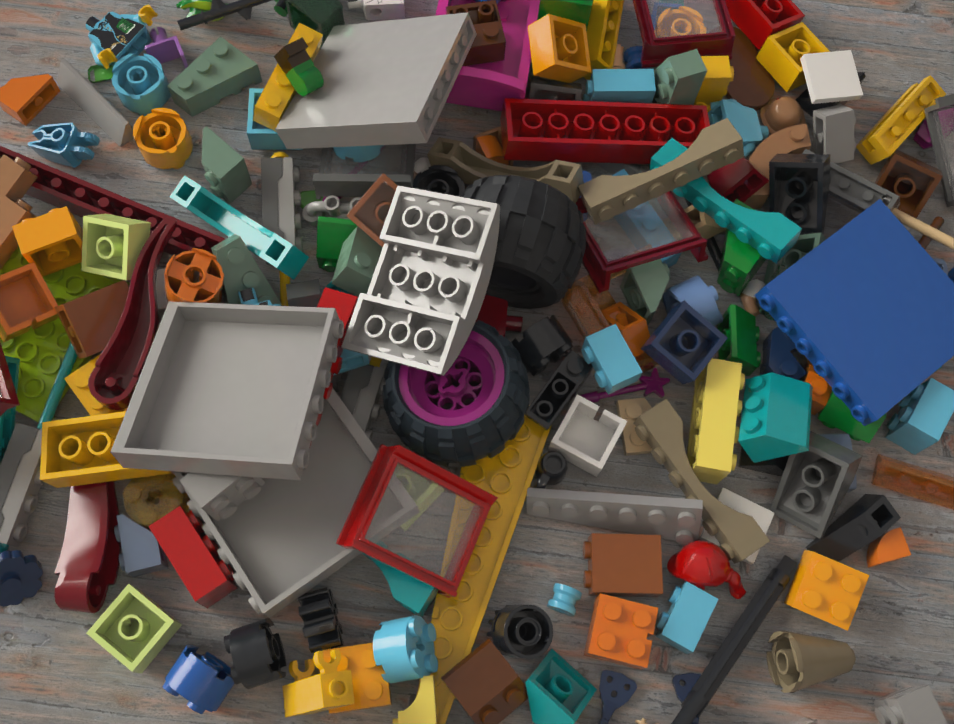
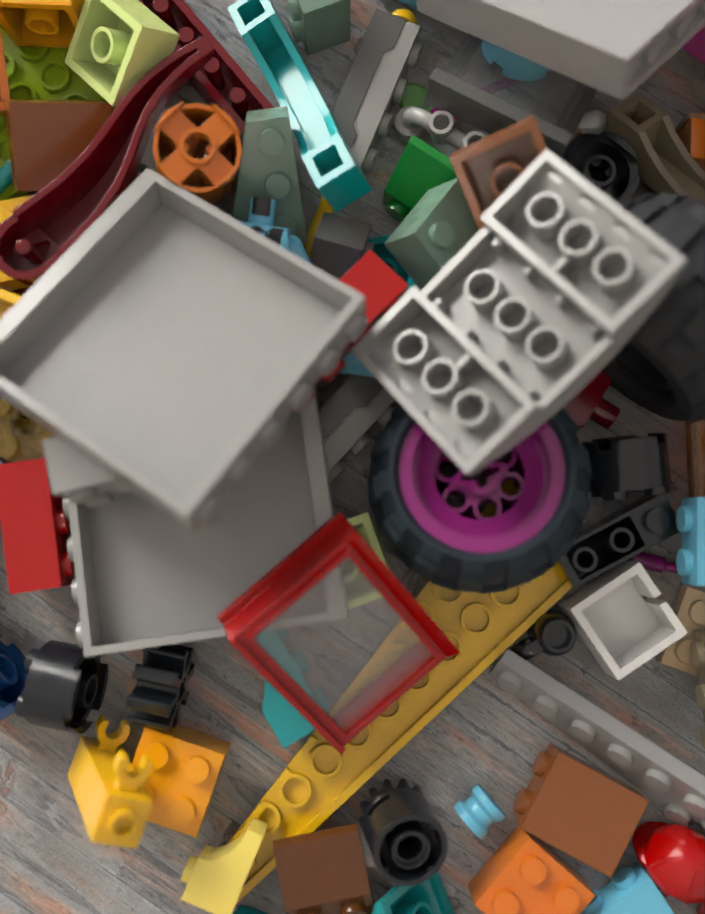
camera: 30 degrees right, 15 degrees up
(405, 649) = (246, 781): medium azure brick -> none

